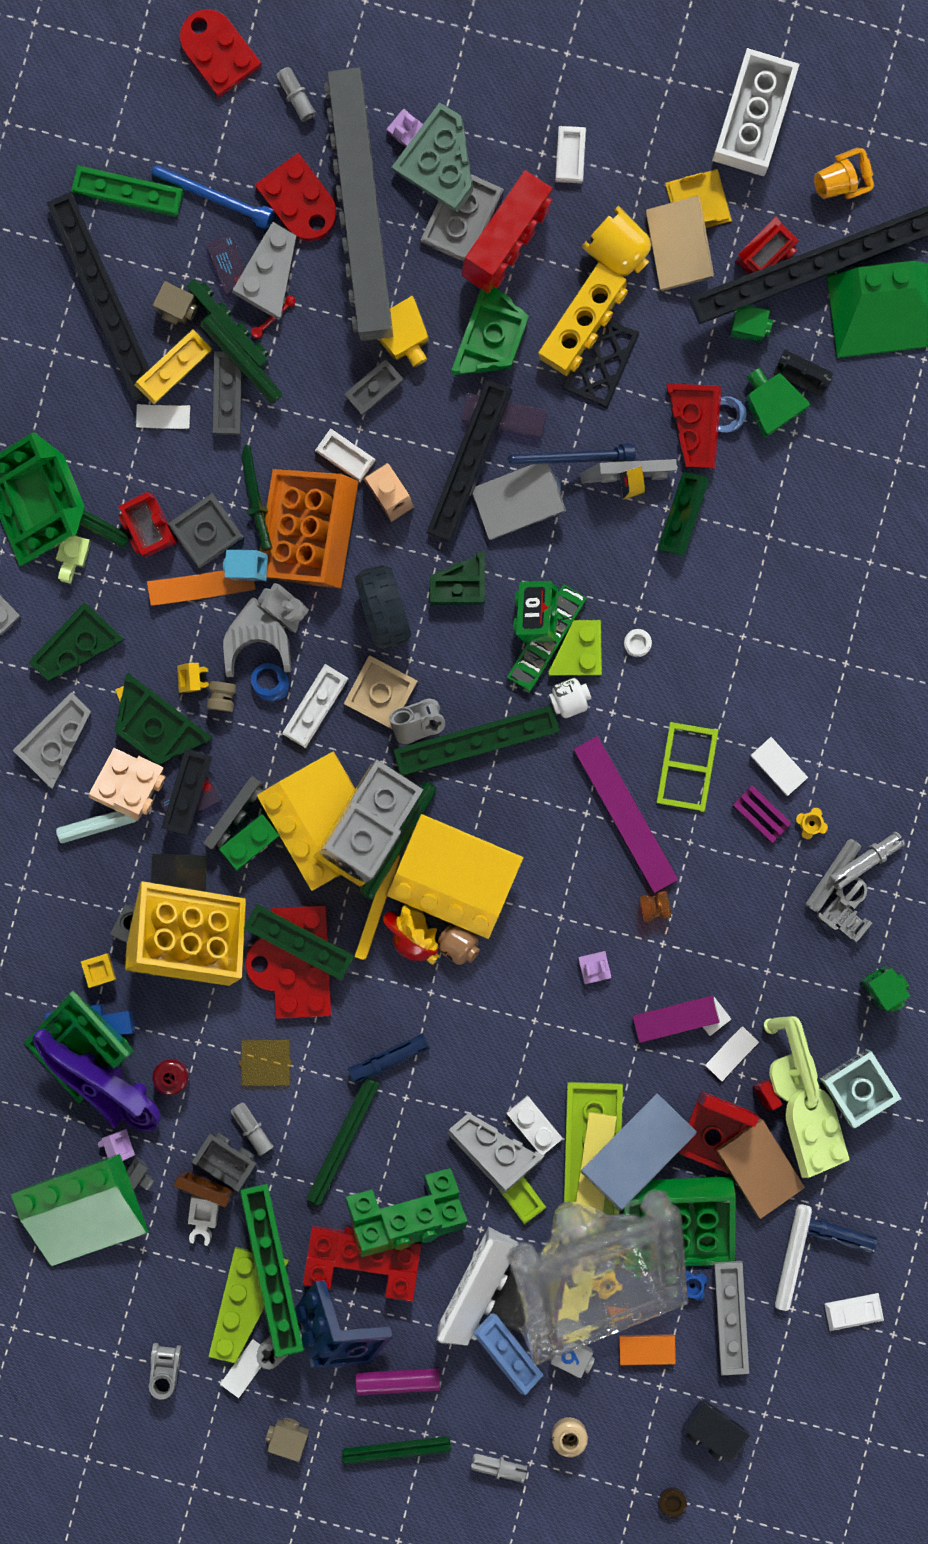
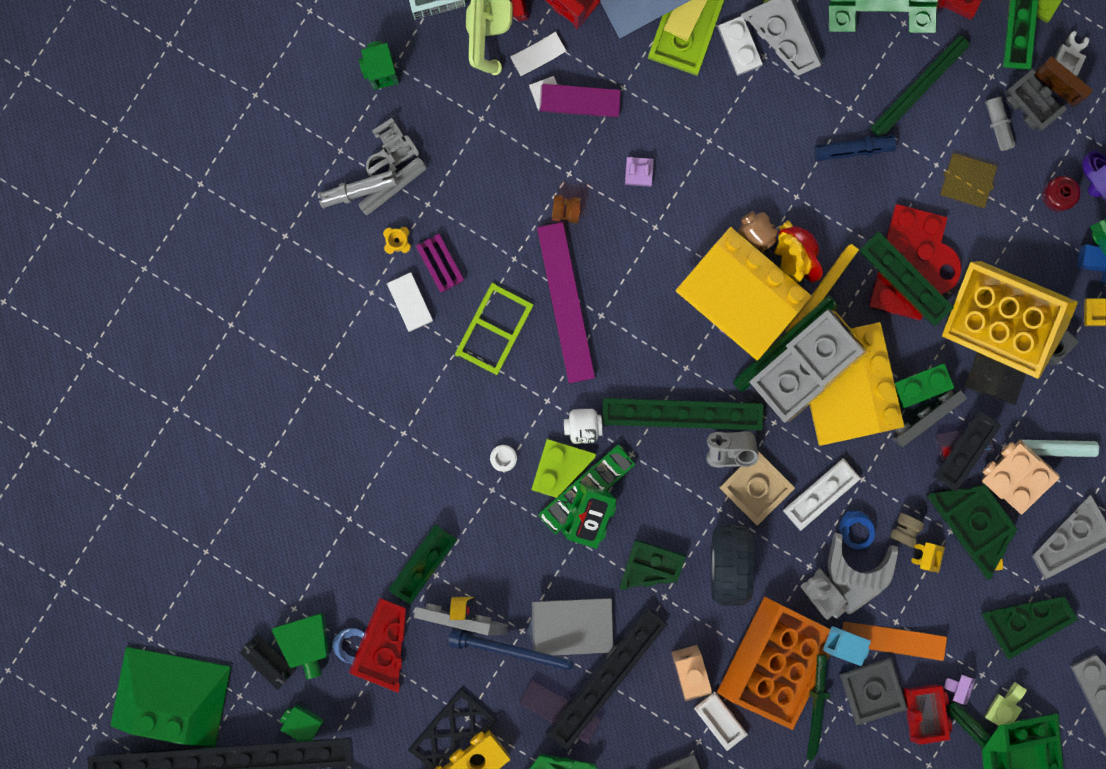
camera: 160 degrees left, 0 degrees up
(120, 559) = (962, 688): none -> lavender tile

